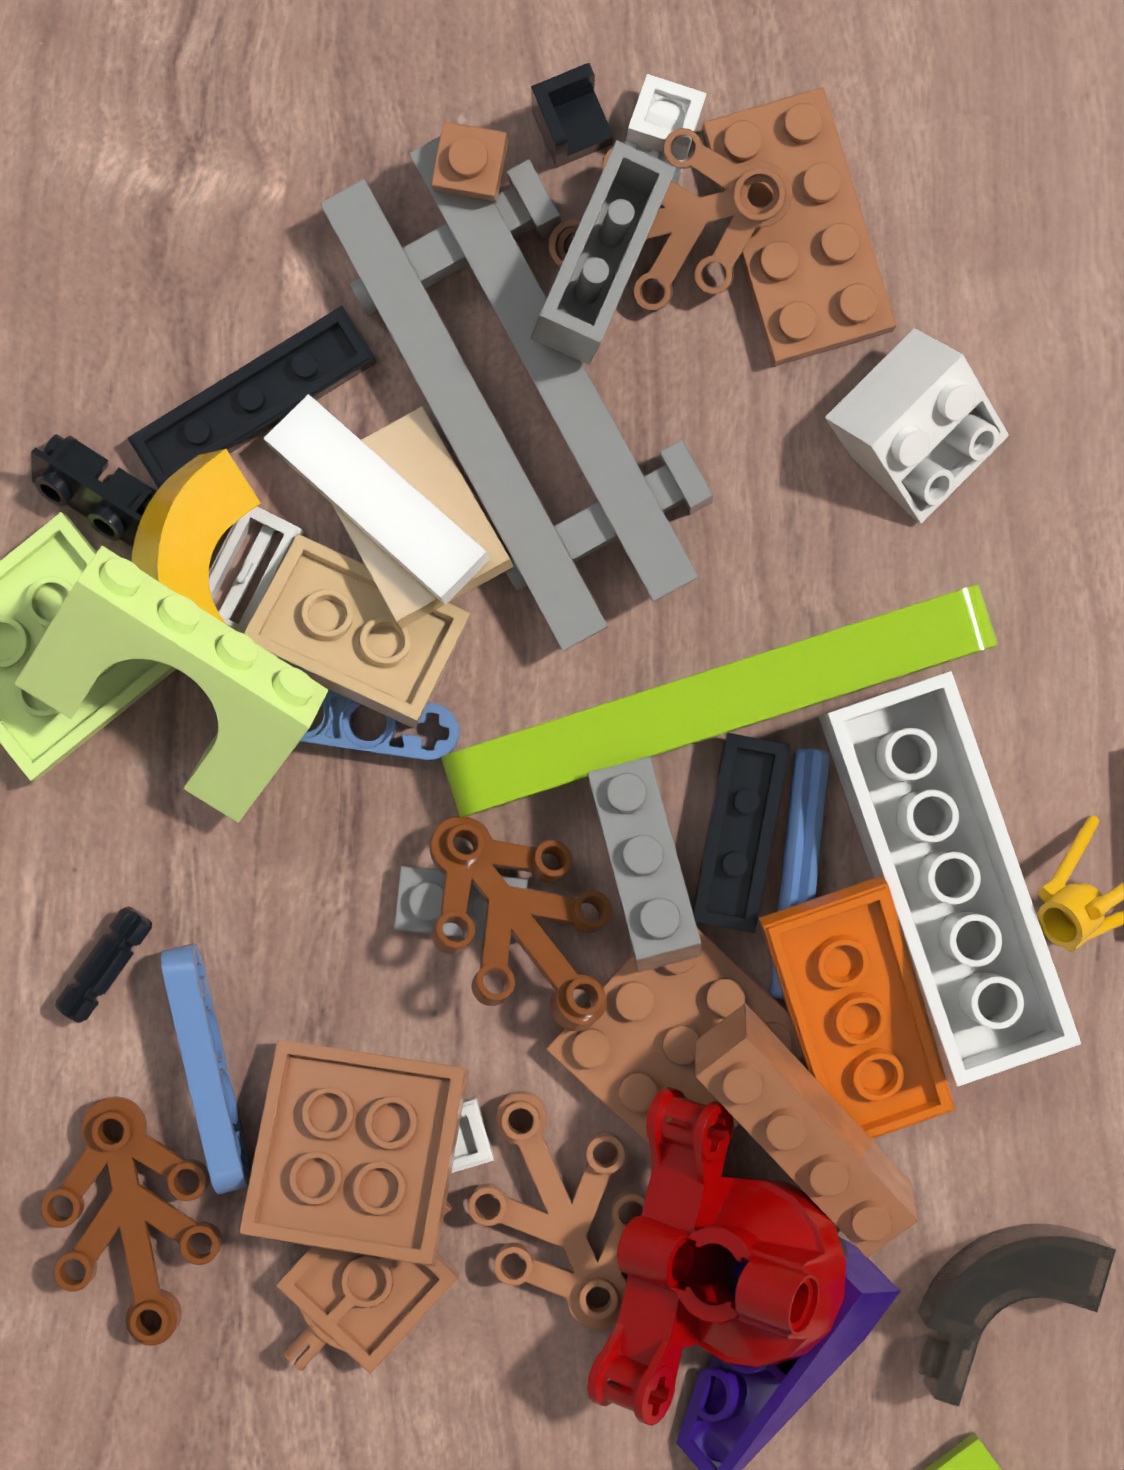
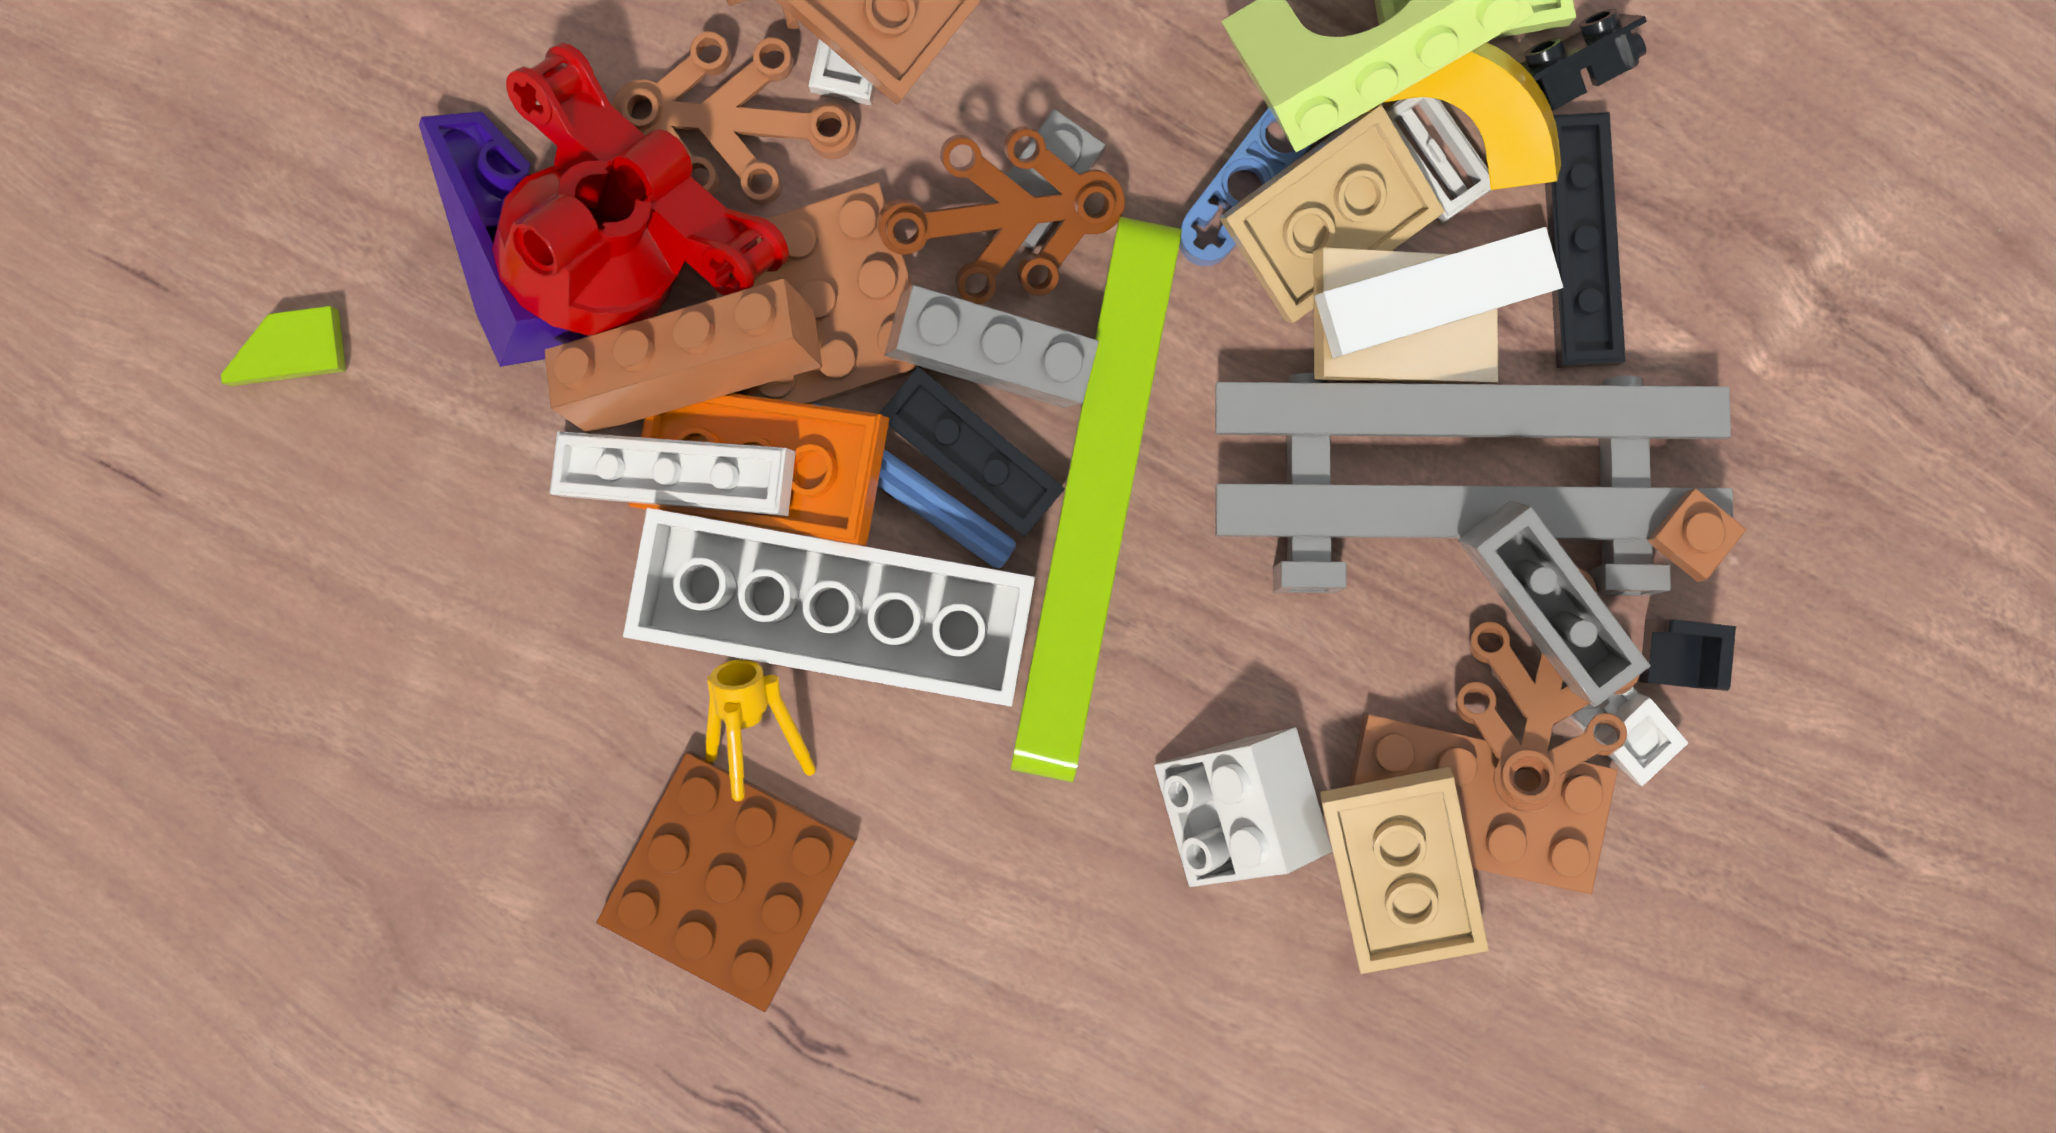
camera: 120 degrees right, 0 degrees up
(897, 257) = (1405, 870): none -> tan plate
(908, 1084) = (673, 473): none -> white tile
(998, 1272) = (468, 464): clear smoke arch -> none

